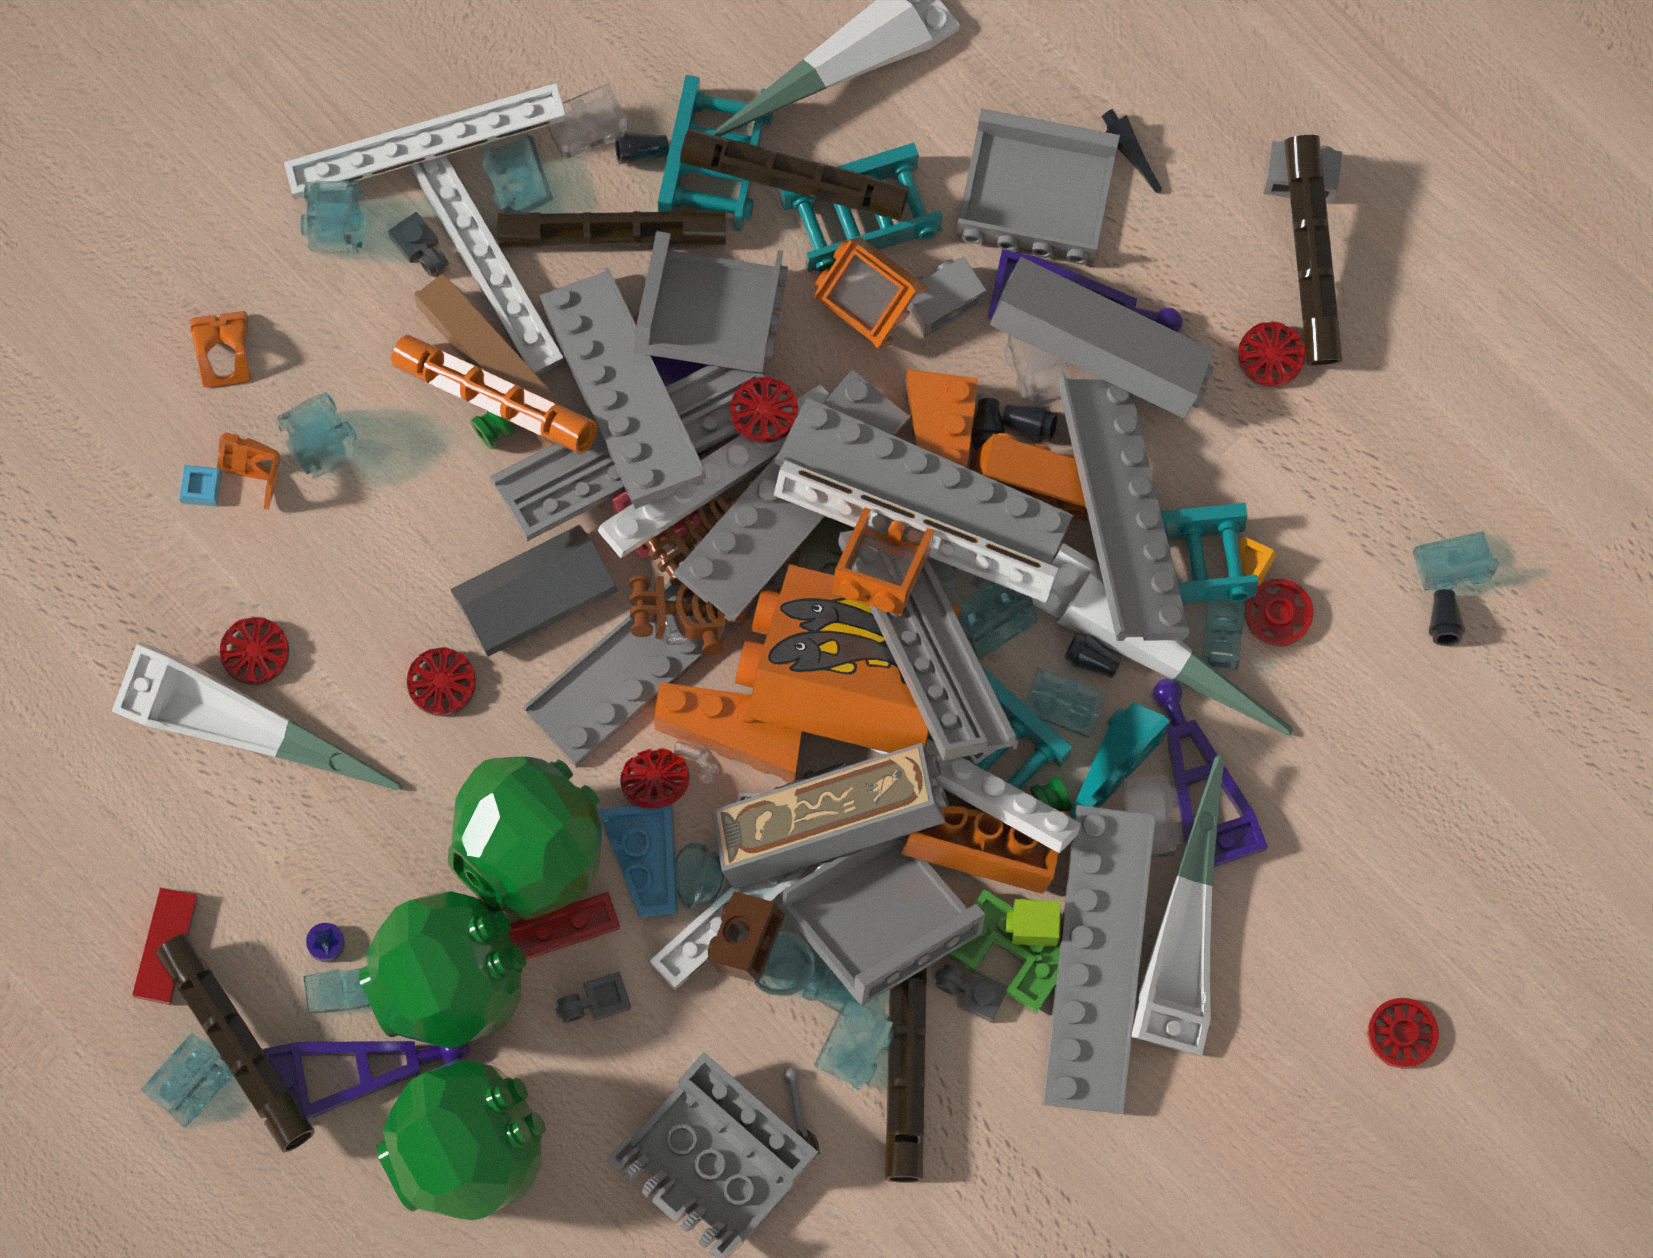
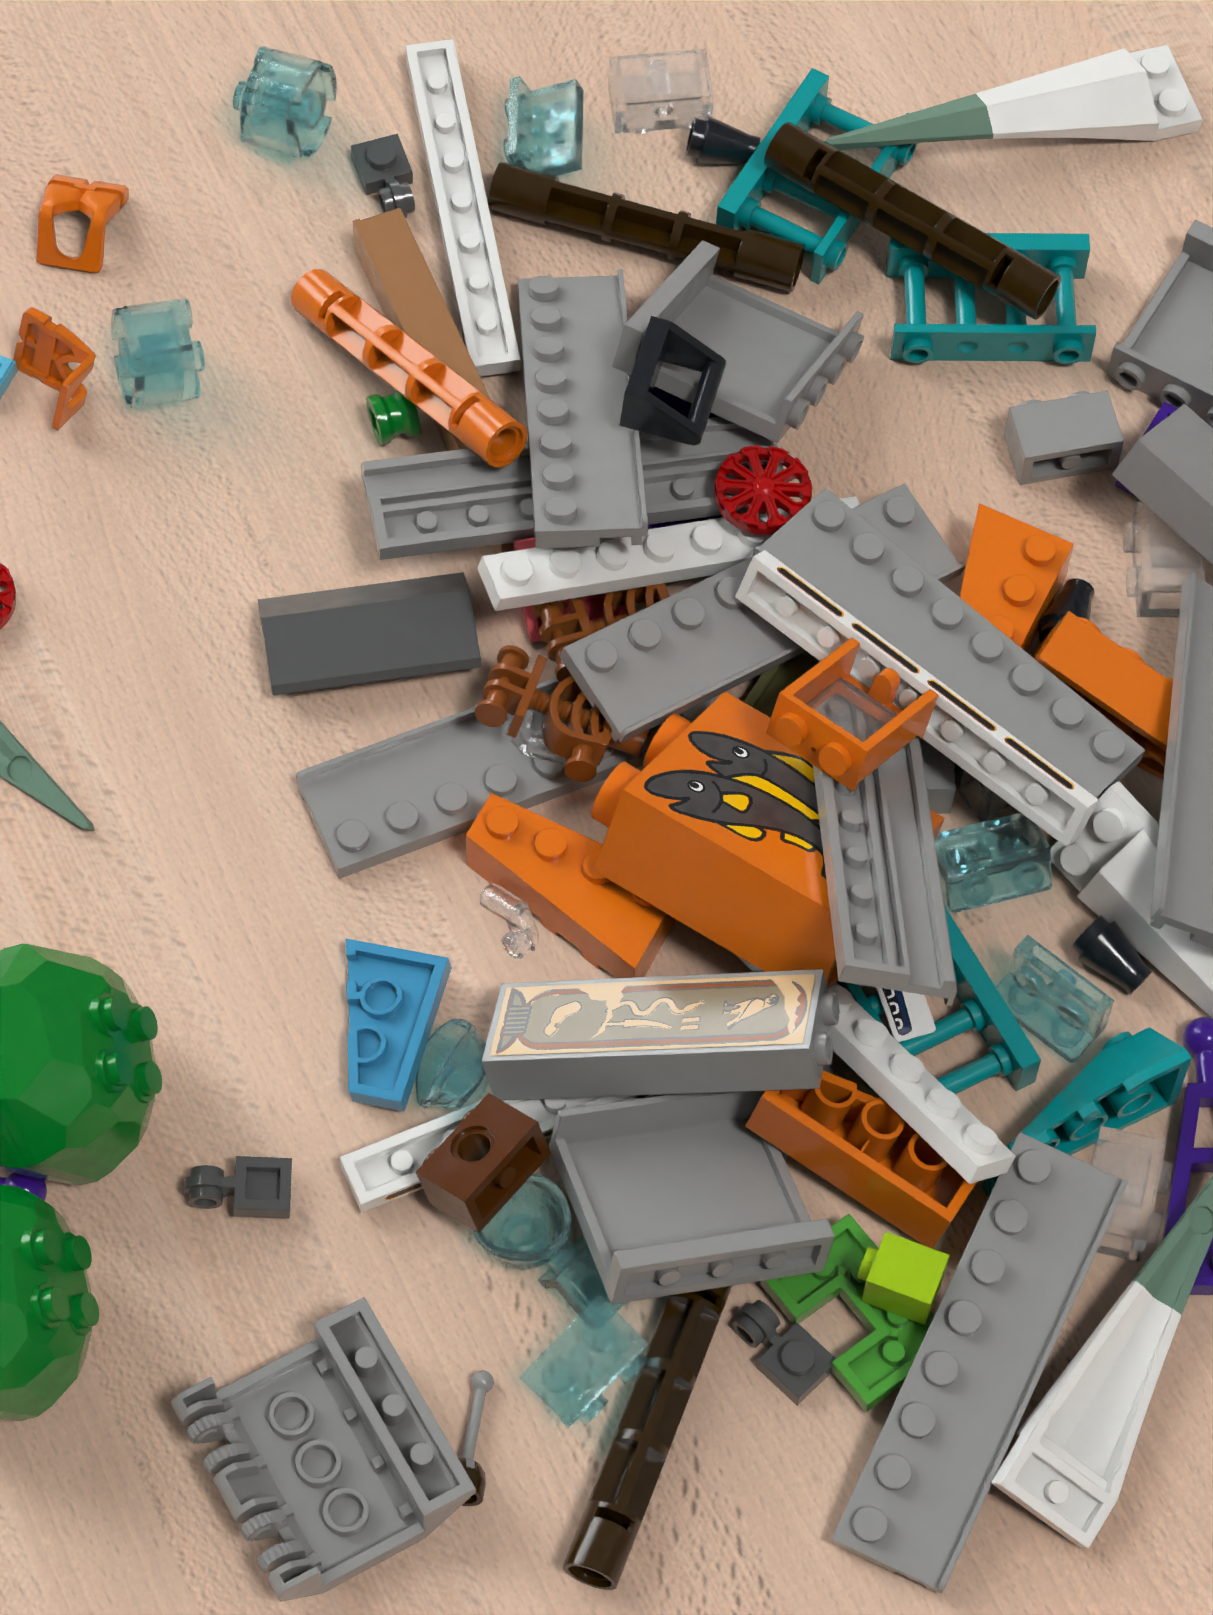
camera: 20 degrees right, 10 degrees down
(429, 139) = (453, 46): white plate -> none
(441, 681) = (199, 711): red wheel -> none
(525, 836) = (224, 923): green rock -> none
(565, 926) = (238, 1078): red tile -> none
(654, 778) = (439, 922): red wheel -> none
(677, 387) = (647, 413): none -> black tile
(867, 290) = (959, 393): orange window -> none
(1032, 421) = (1131, 627): black cone -> none
(1052, 794) = (994, 1114): green wheel -> none

